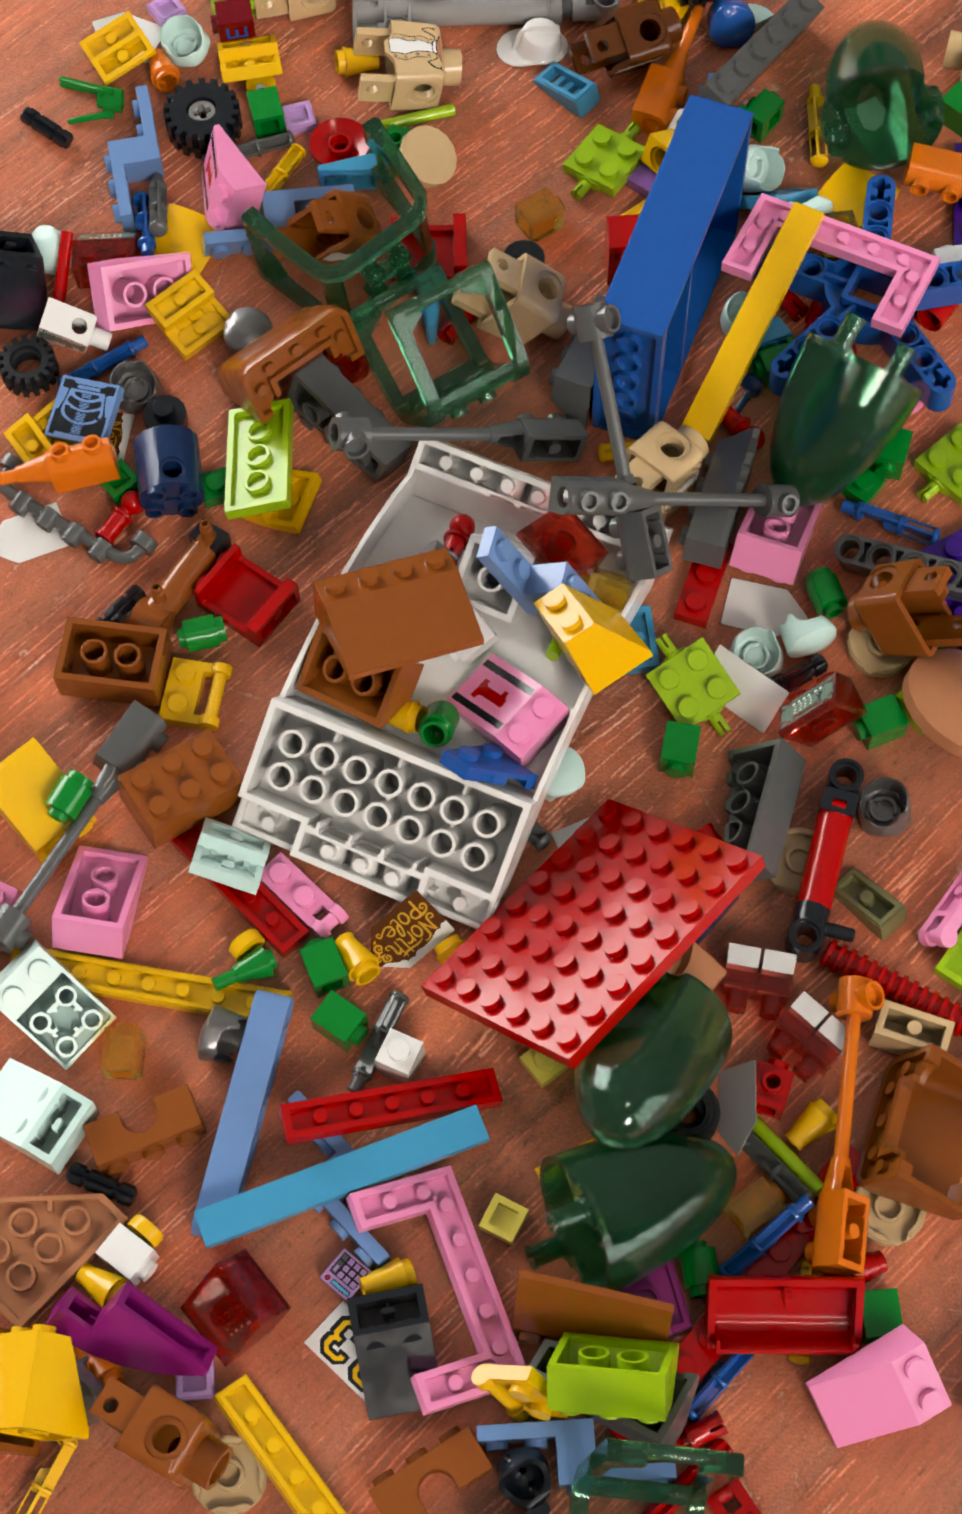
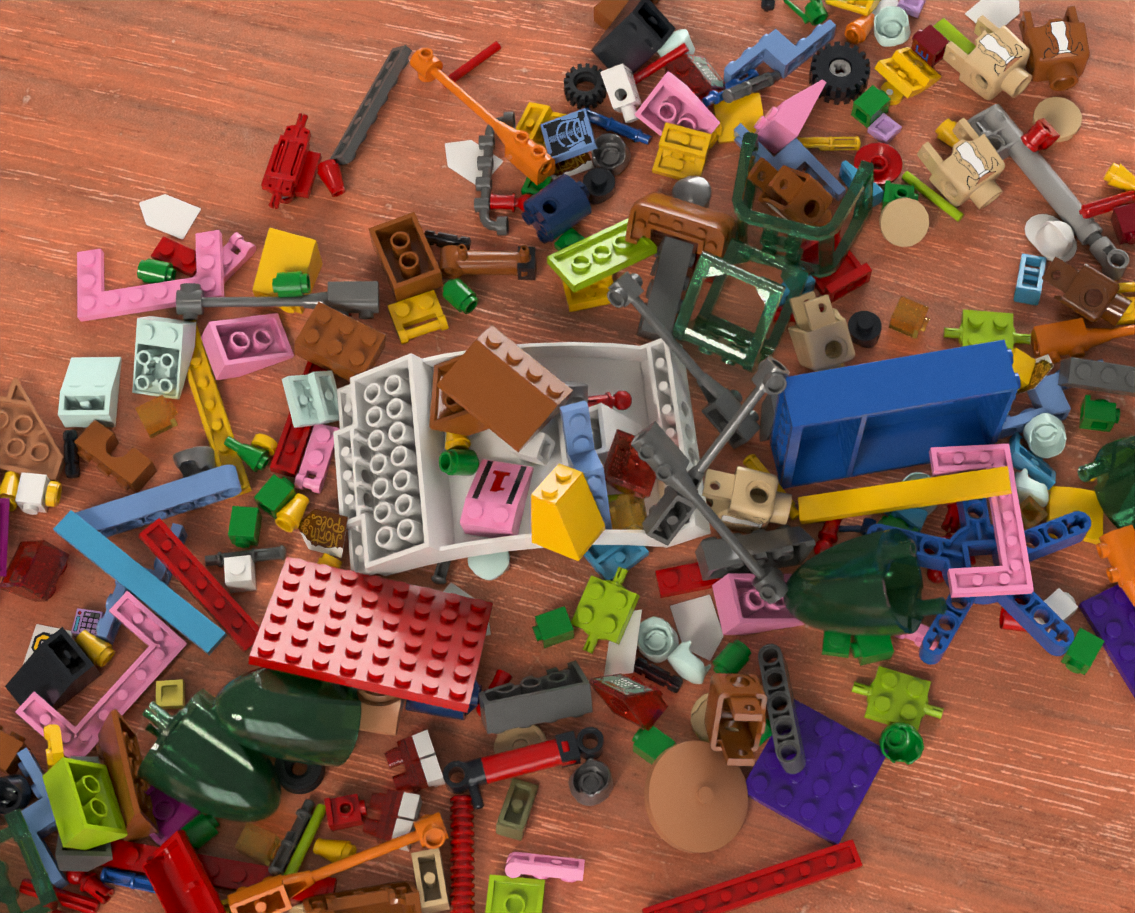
camera: 60 degrees right, 0 degrees up
(245, 596) = (503, 303): red panel -> none
(265, 145) = (841, 117): dark grey piece -> none
(486, 764) = (444, 504): blue wing -> none
(737, 1104) = (320, 795): white sticker -> none
(766, 1237) = (235, 858): blue piece -> none
(891, 521) = (819, 676): blue piece -> none

